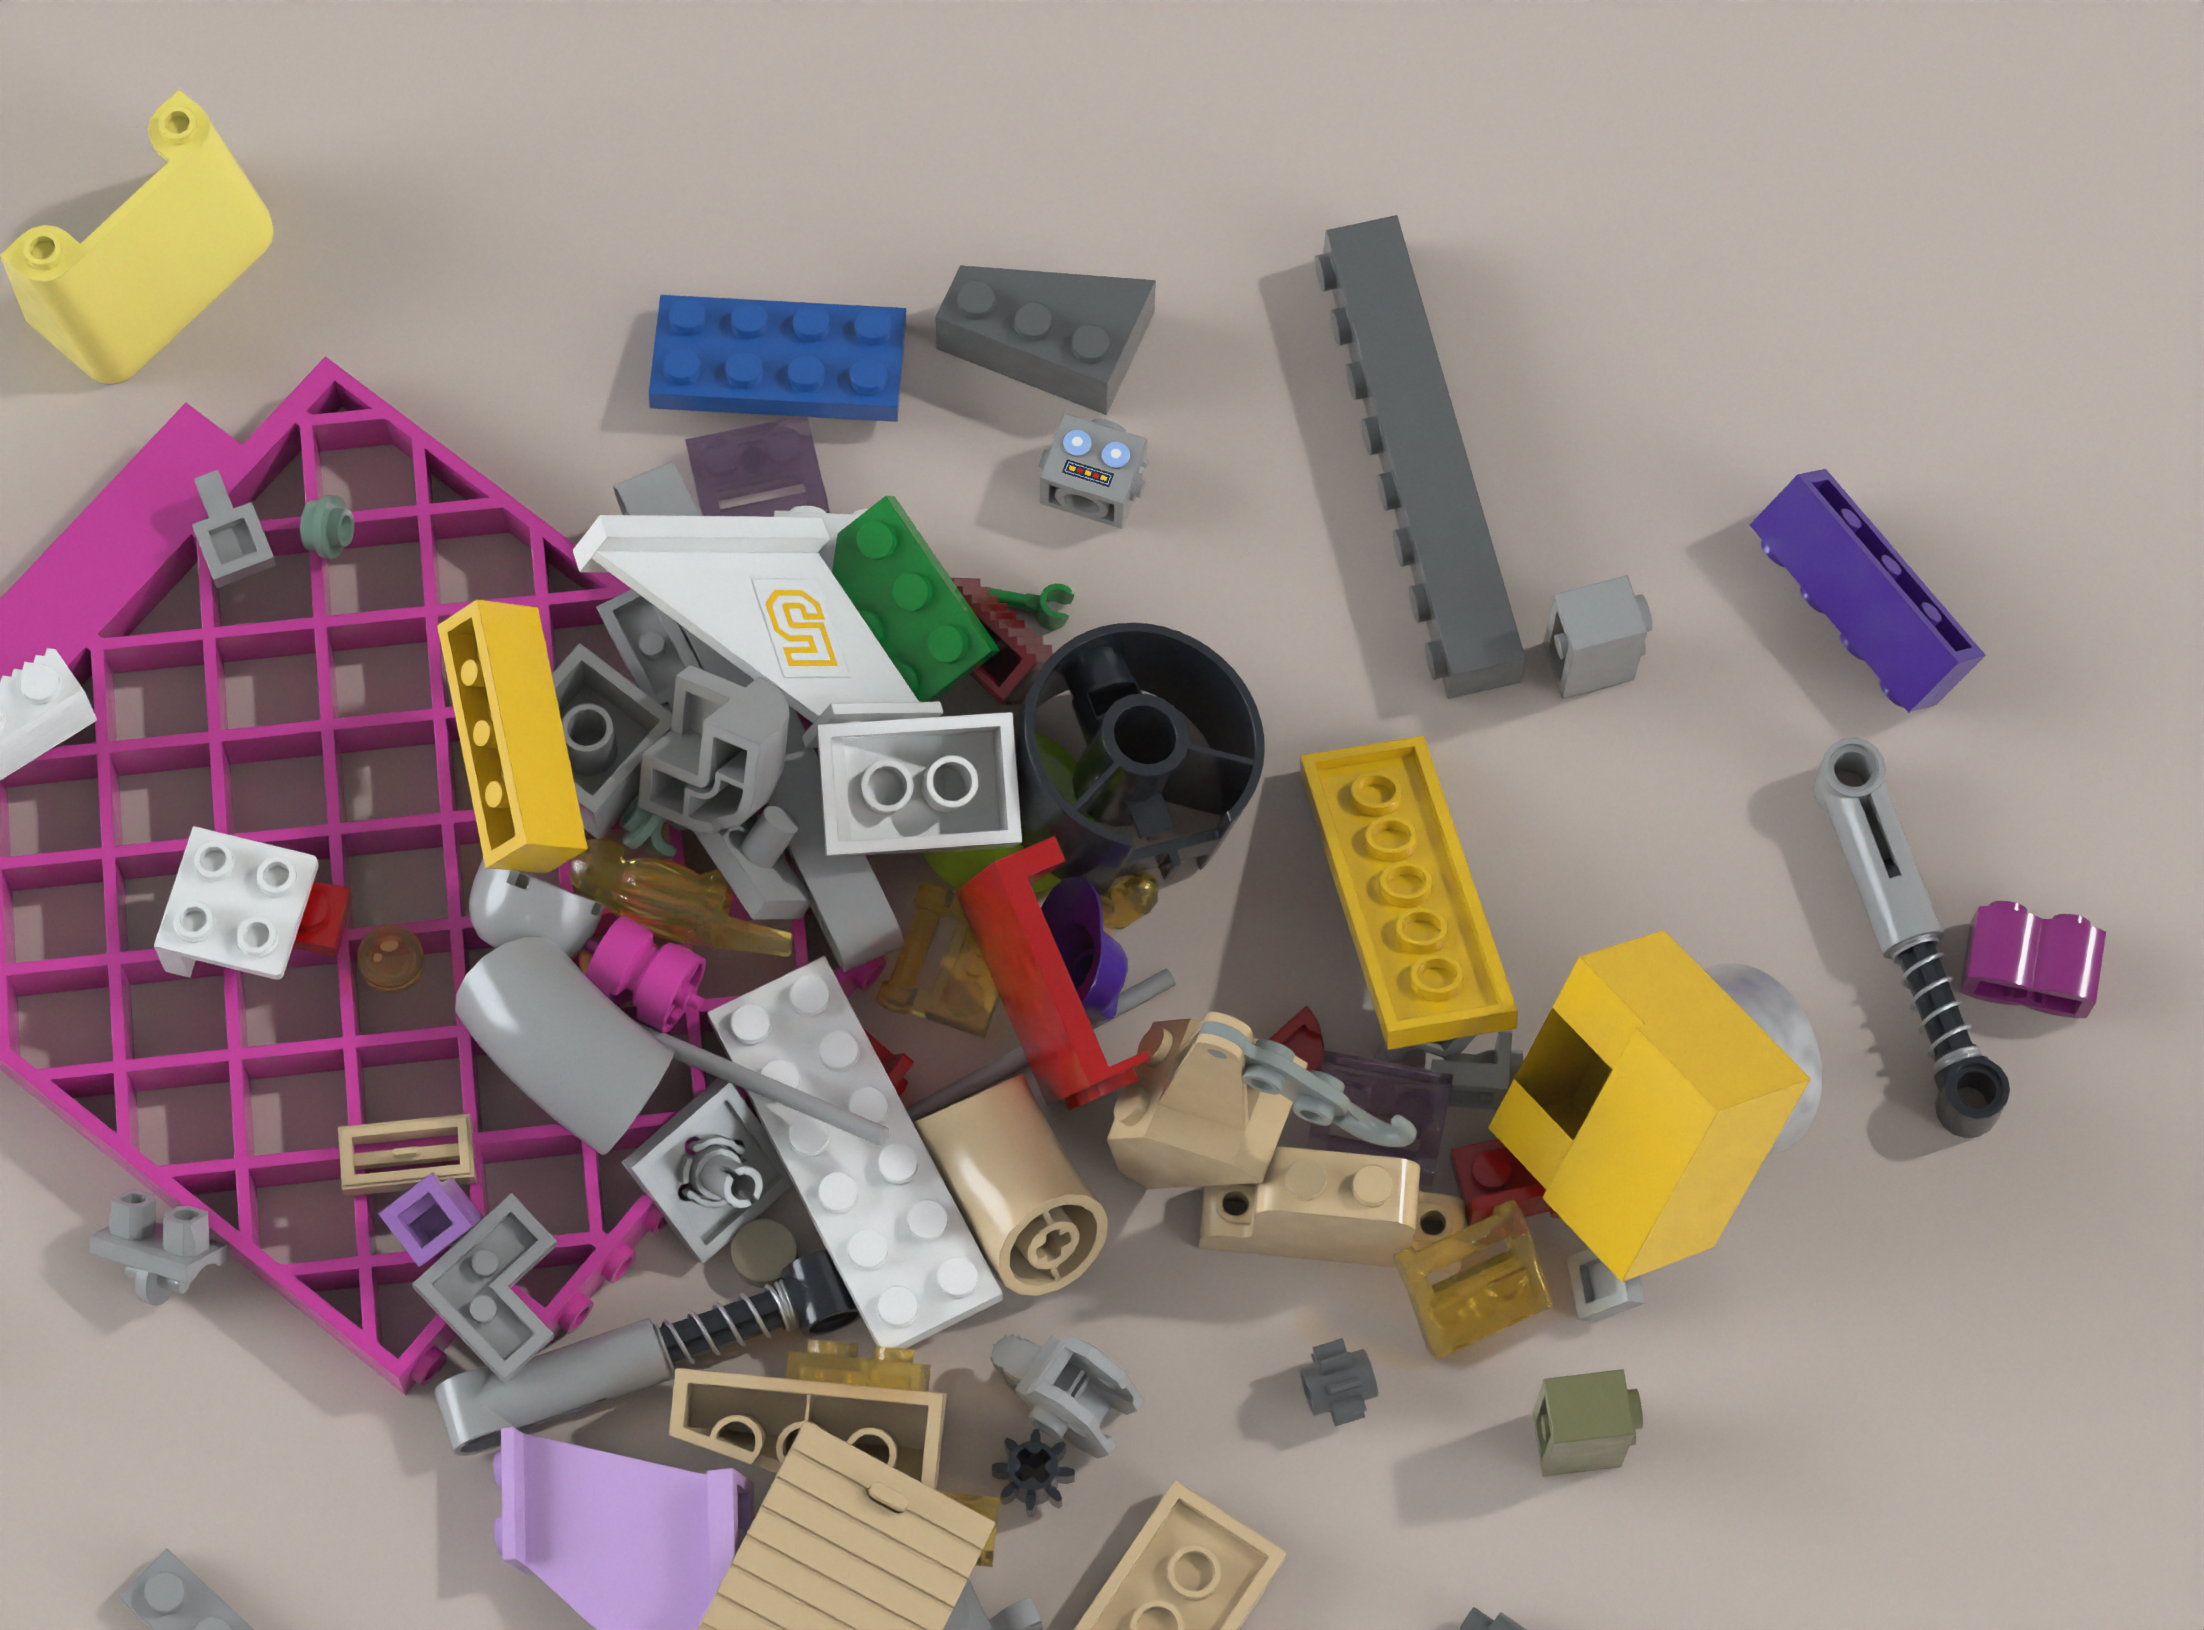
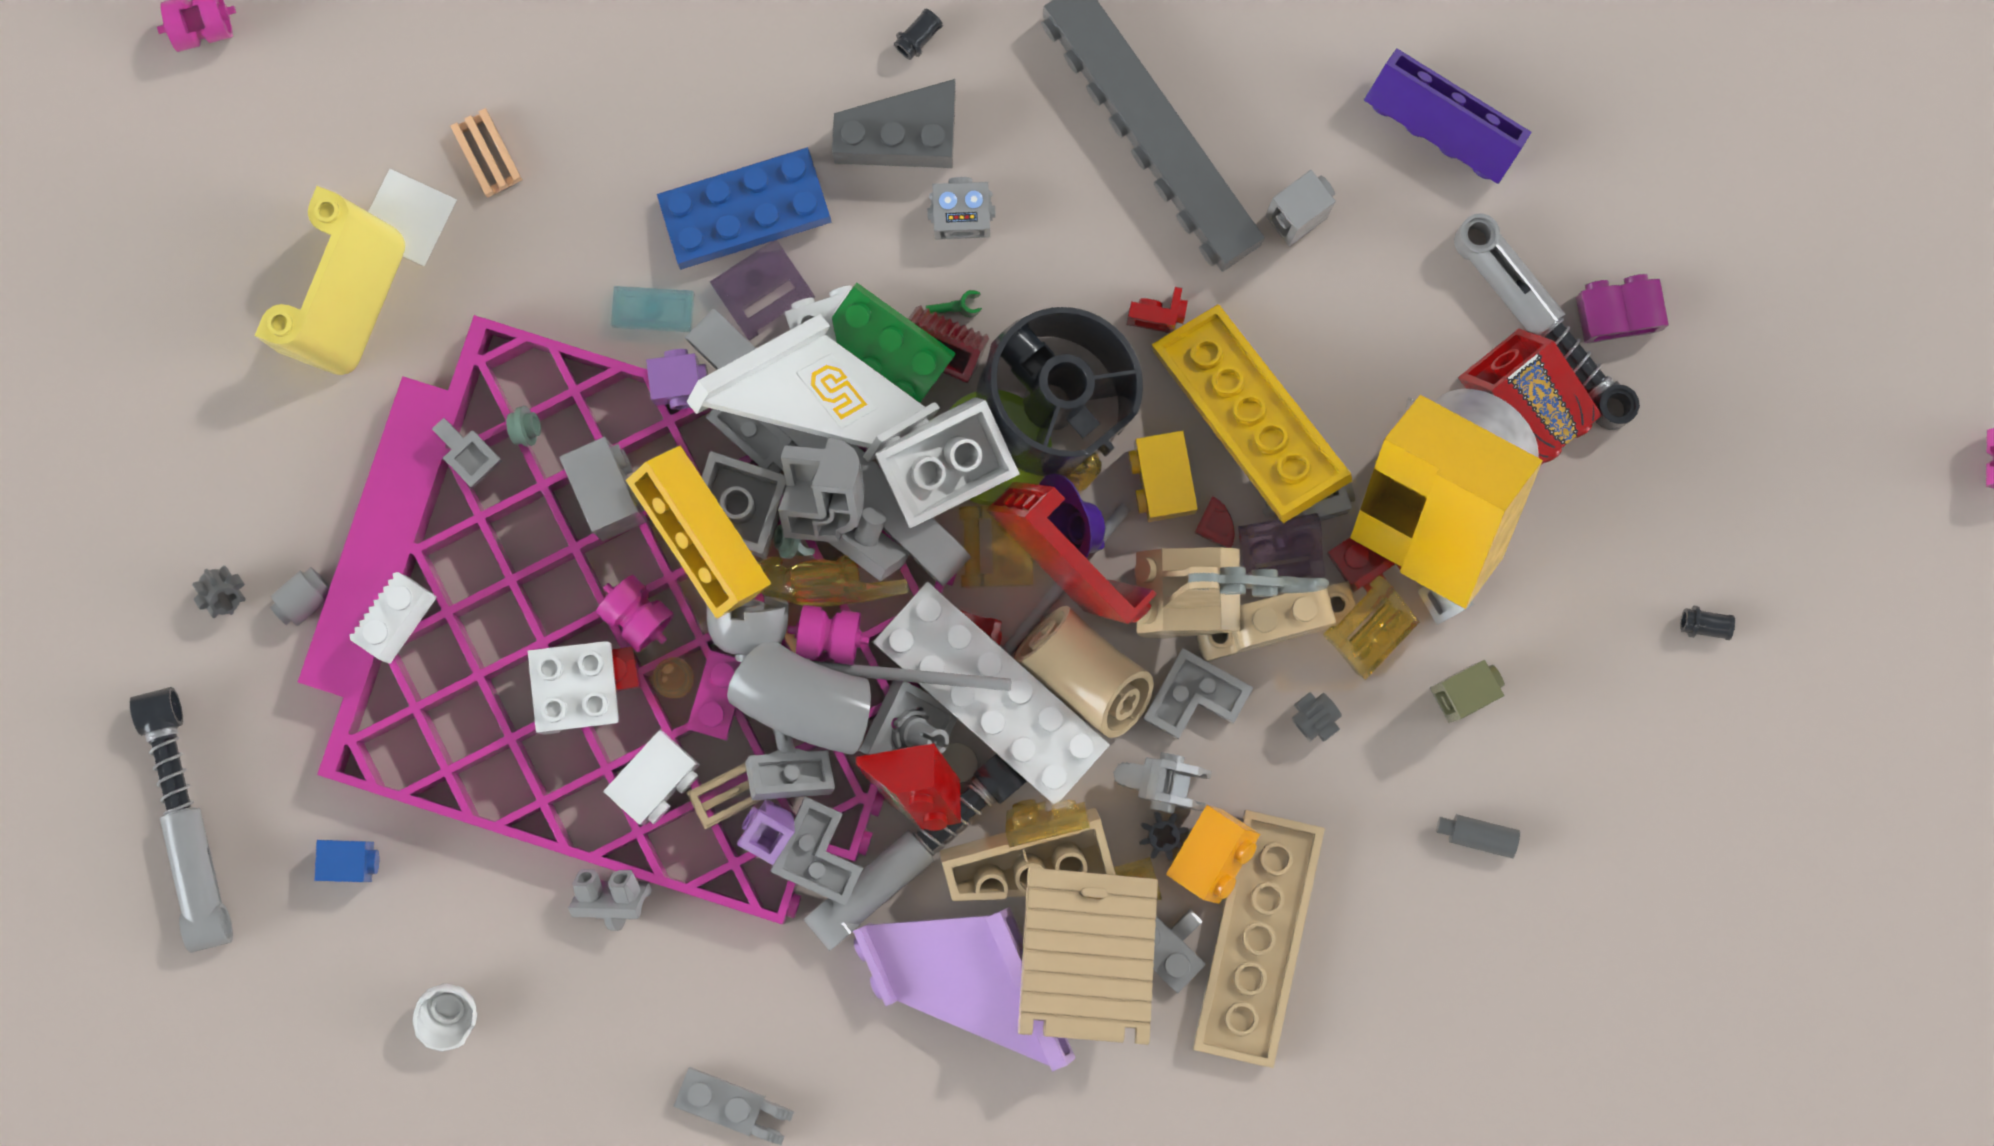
camera: 20 degrees left, 15 degrees up
(296, 1085) = (652, 779): none -> white brick
(305, 202) = (414, 211): none -> white sticker
(369, 827) = (630, 608): none -> dark pink wheel
(400, 644) = (600, 484): none -> light grey brick
(426, 1025) = (711, 709): none -> dark pink plate
(438, 113) = (471, 124): none -> light nougat tile
(502, 1149) = (789, 772): none -> light grey plate
(557, 530) = (674, 377): none -> medium lavender brick
(584, 447) = (652, 309): none -> clear light blue plate
(685, 1241) = (916, 784): none -> red slope
(1097, 1523) = (1213, 855): none -> light orange brick
(1129, 213) = (917, 34): none -> black pin
(1168, 1266) = (1194, 683): none -> light grey plate
(1242, 945) = (1163, 476): none -> yellow brick
(1320, 719) = (1152, 316): none -> red bracket
(1866, 1033) = (1538, 384): none -> red slope
(2001, 1471) = (1707, 623): none -> black pin

